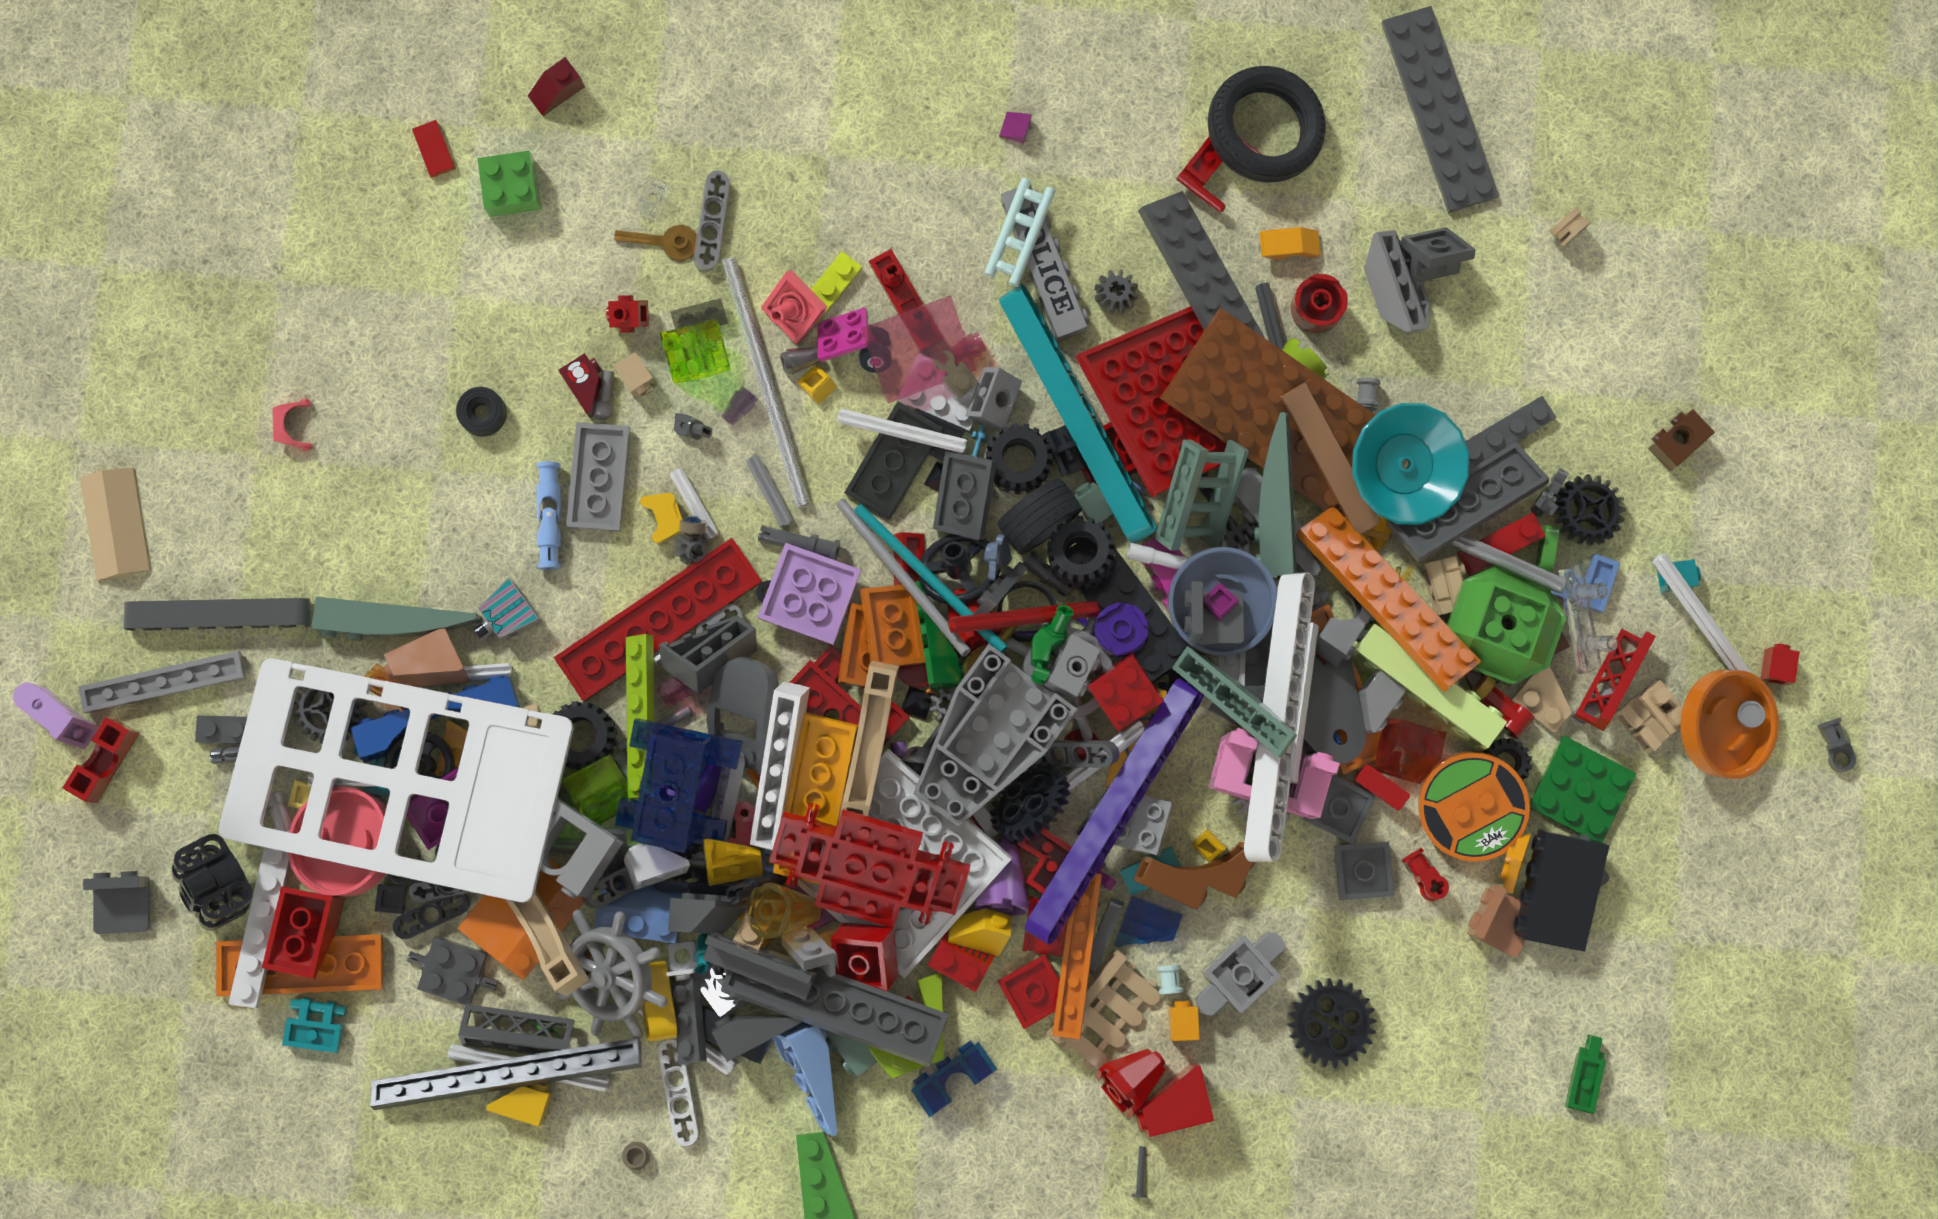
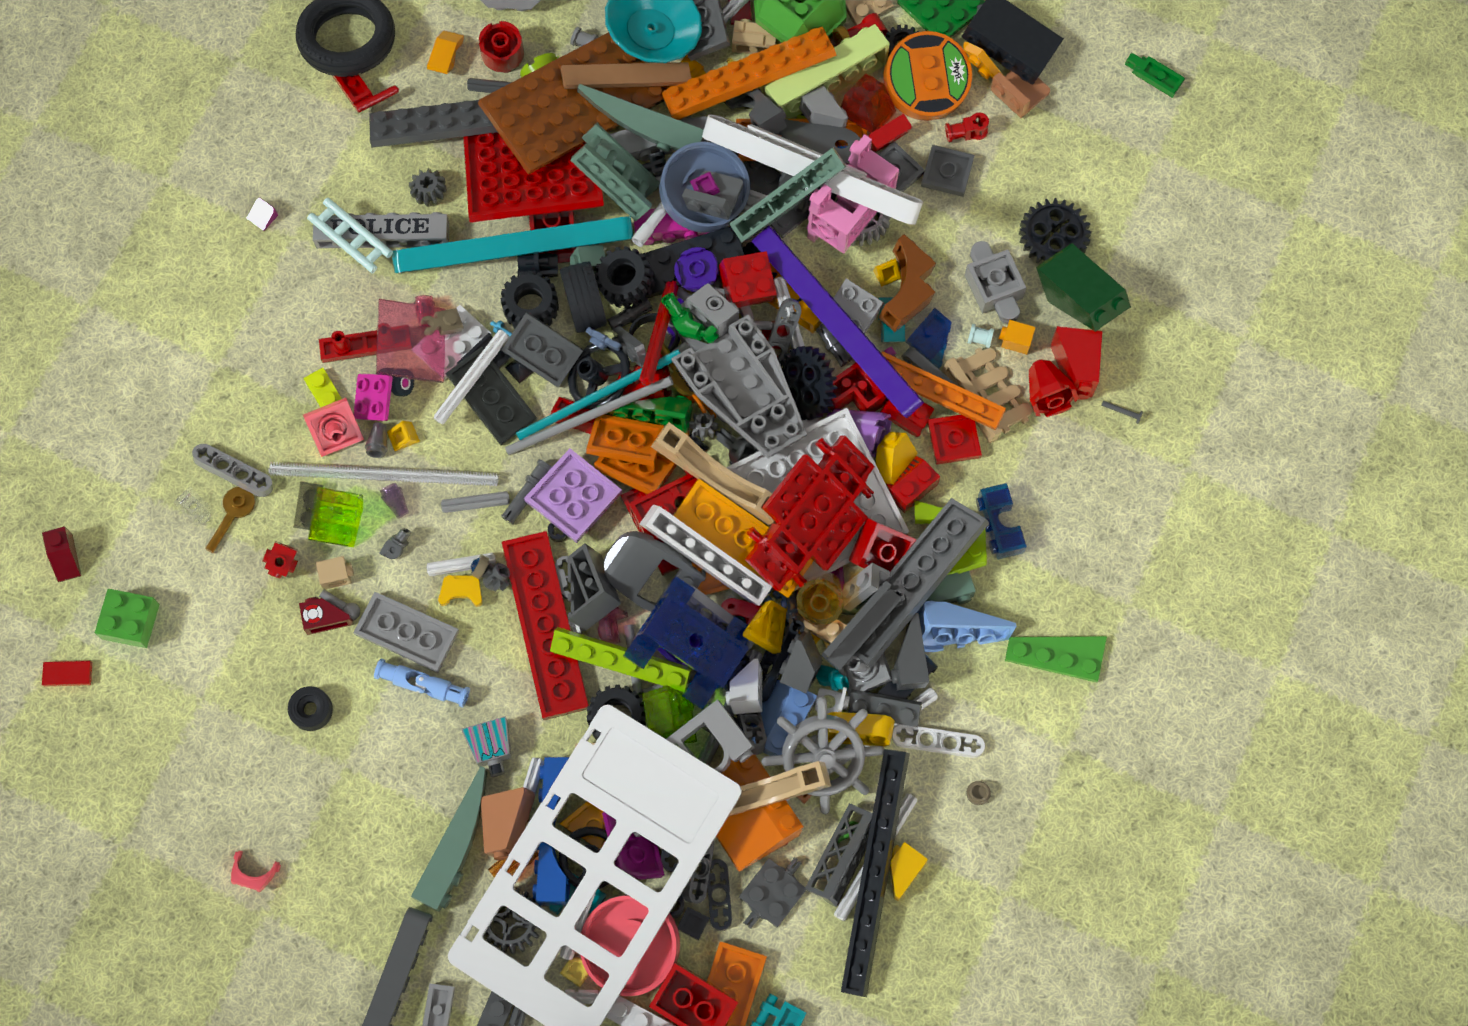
camera: 65 degrees left, 10 degrees down
(994, 398) = (473, 303): light grey brick -> none
(1261, 1080) = (1082, 288): none -> dark green slope

